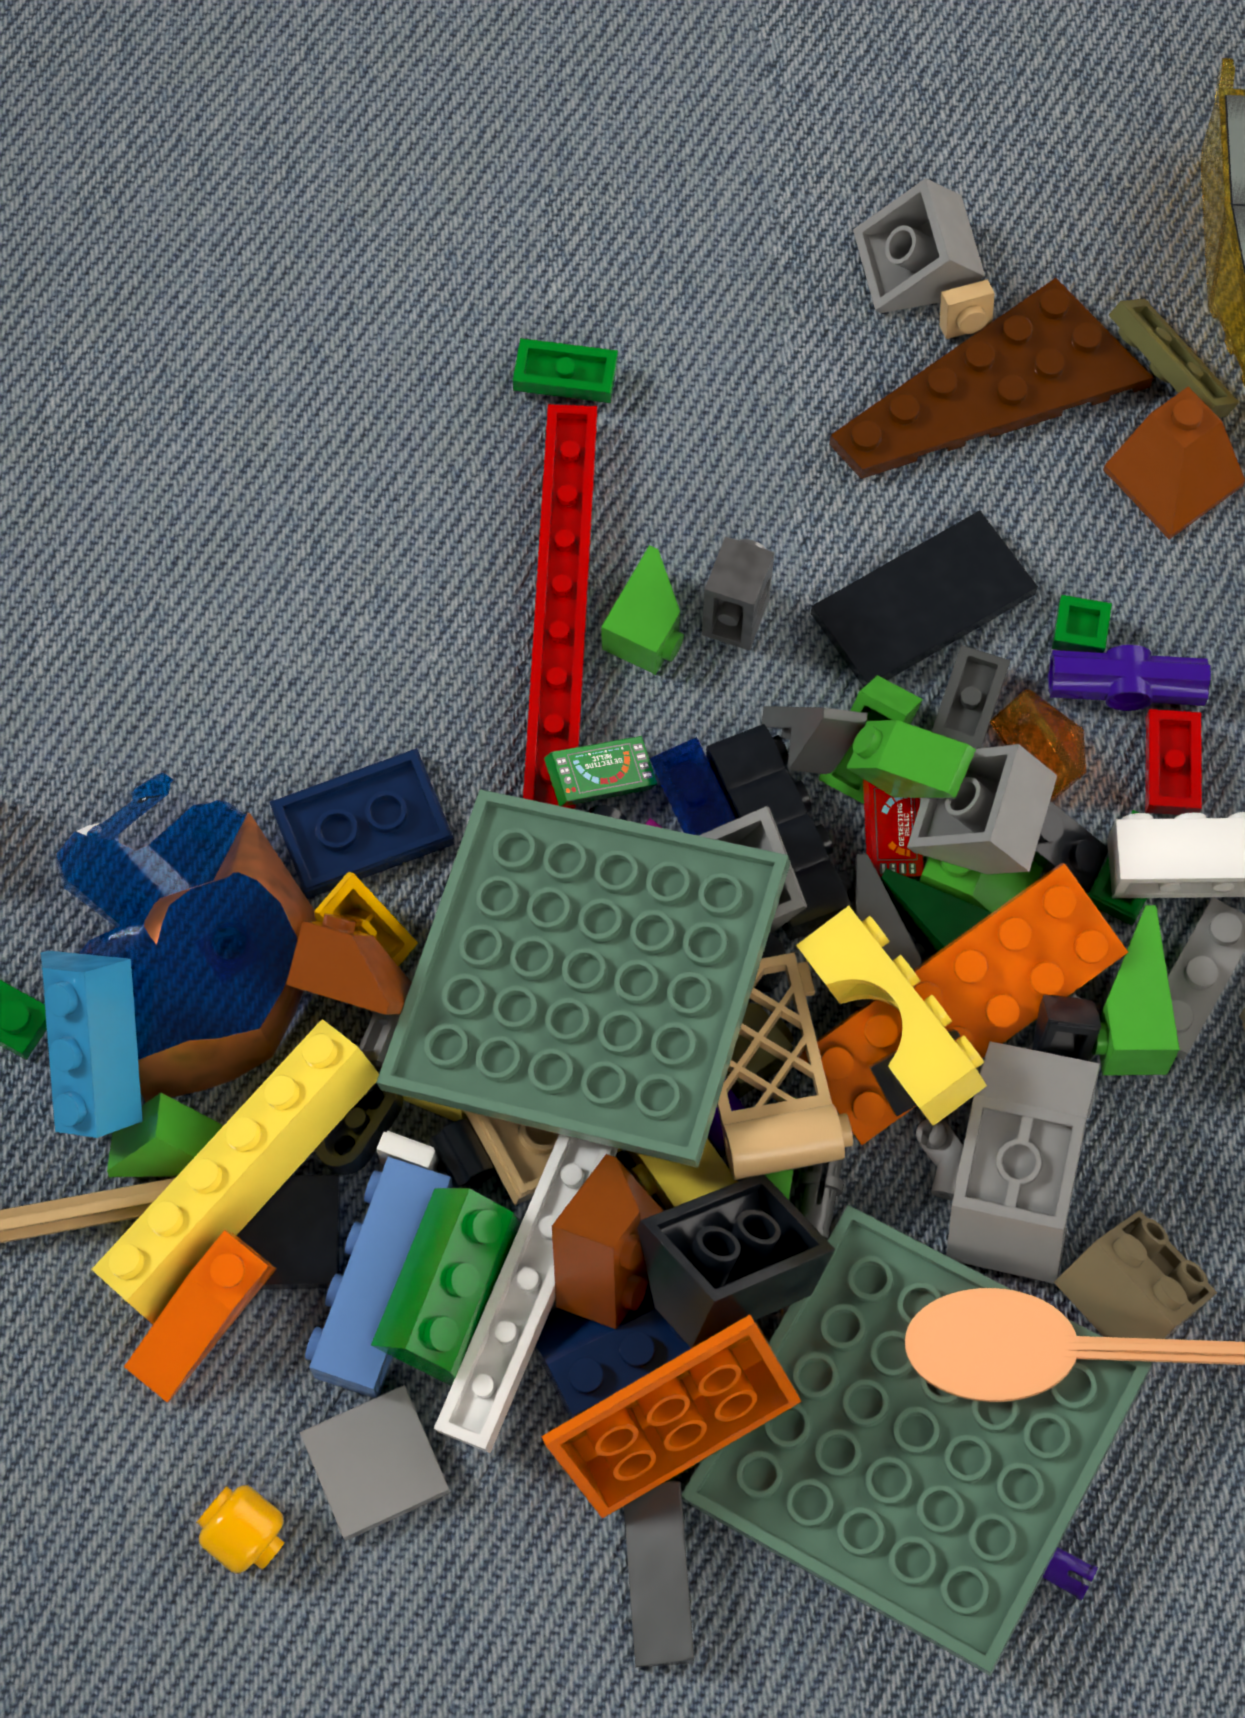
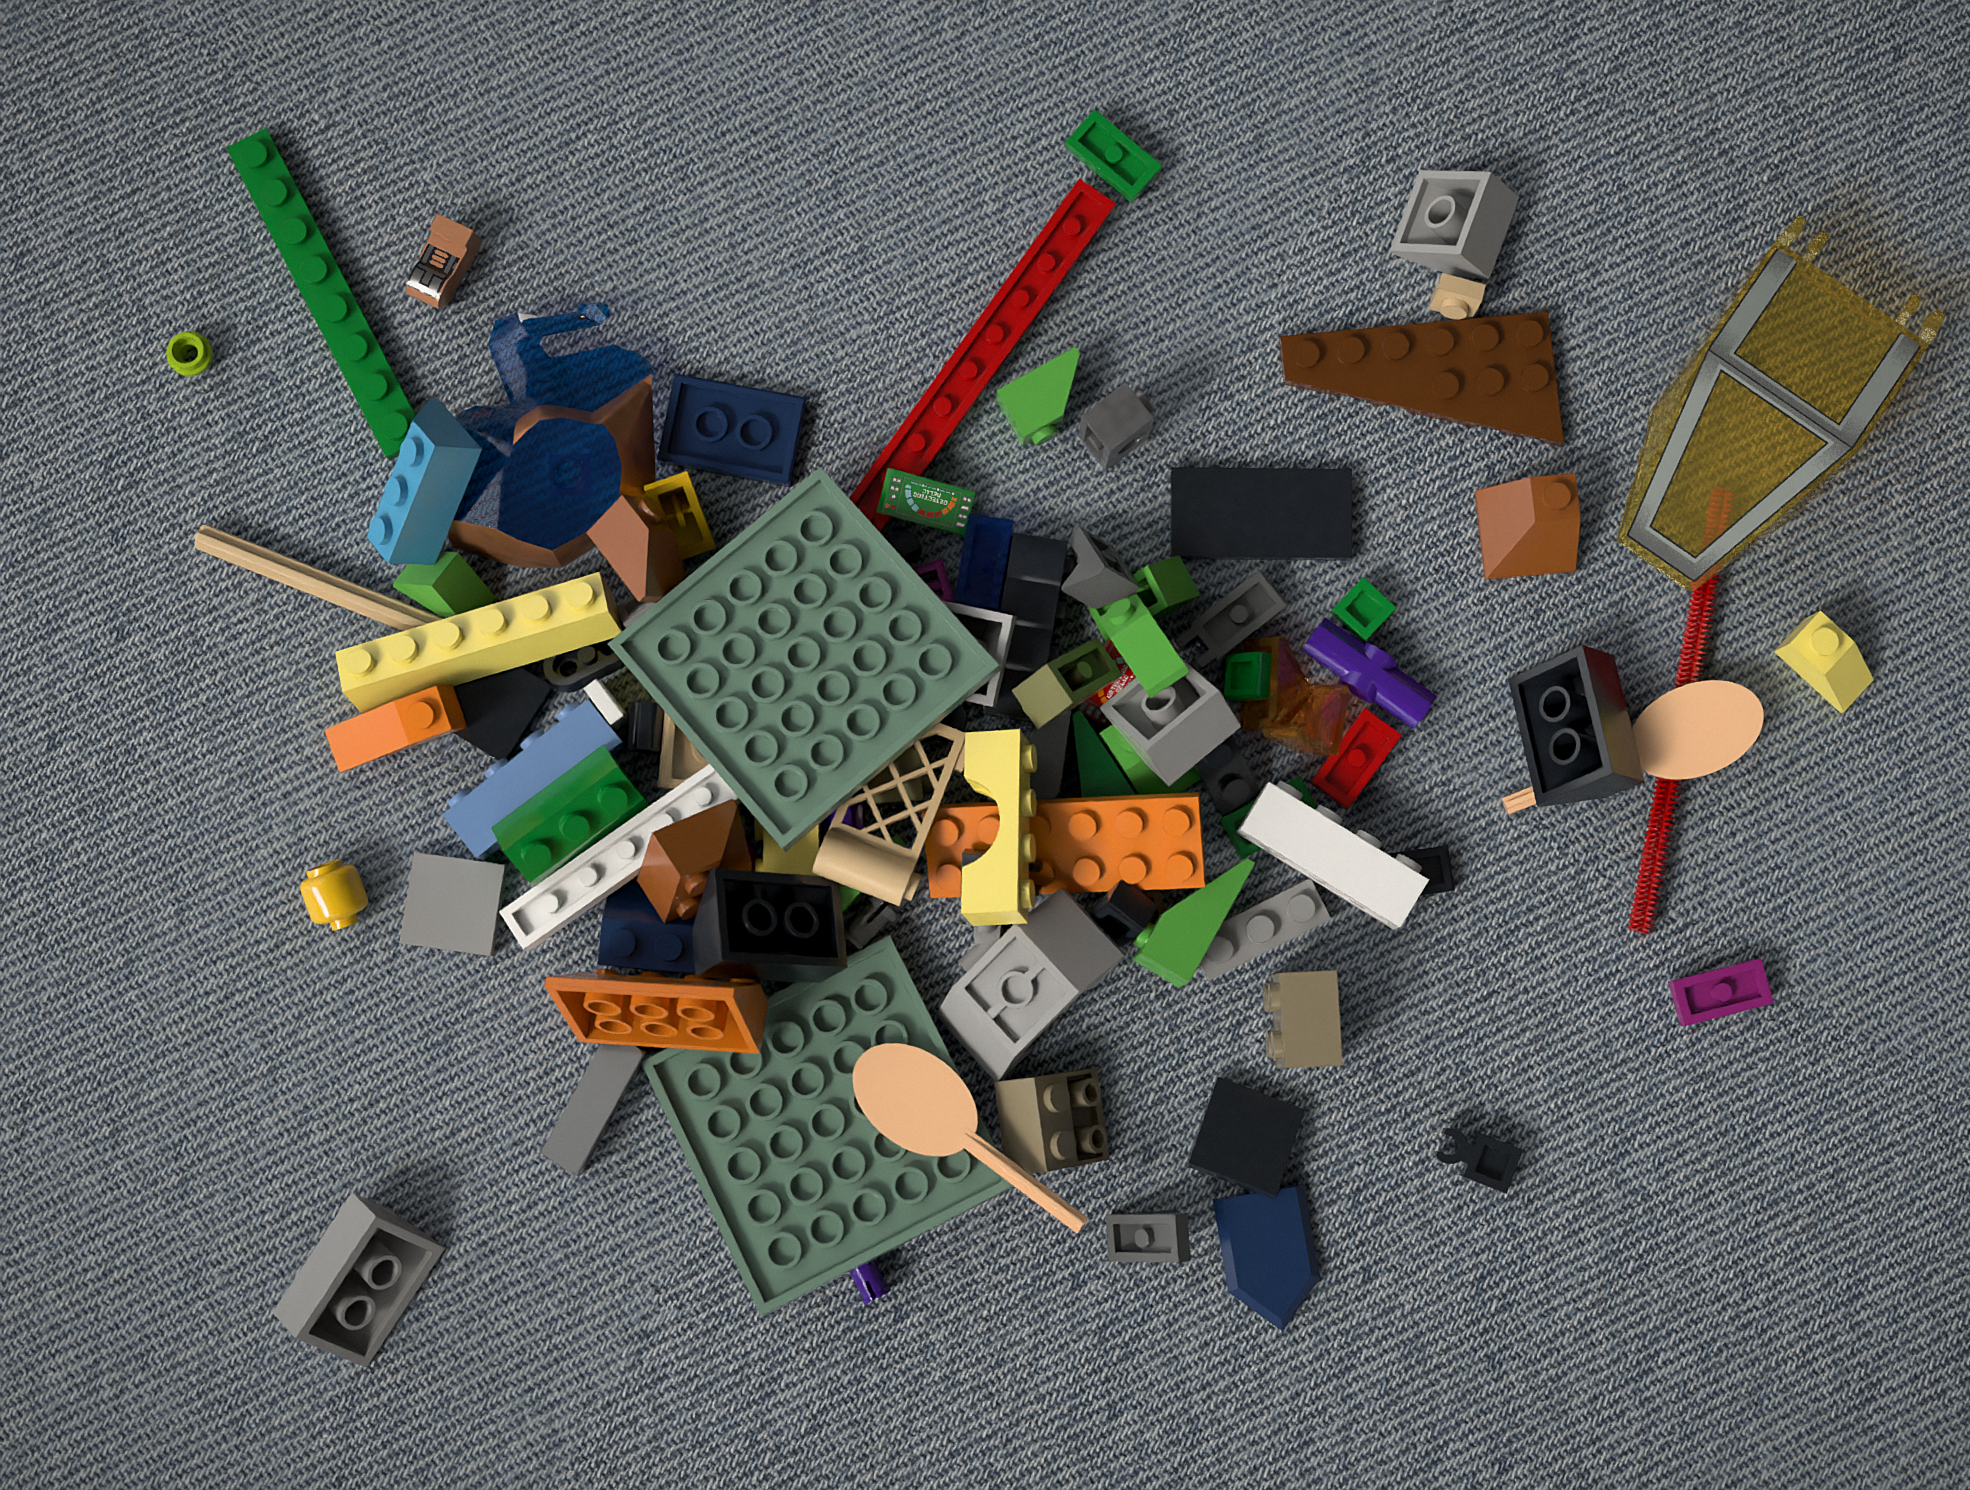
camera: 30 degrees right, 15 degrees up
(857, 846) = (1066, 682): none -> olive slope
(1023, 731) = (1247, 676): none -> green tile
(1111, 750) = (1311, 720): none -> clear orange slope
(1169, 355) = (1589, 436): olive plate -> none

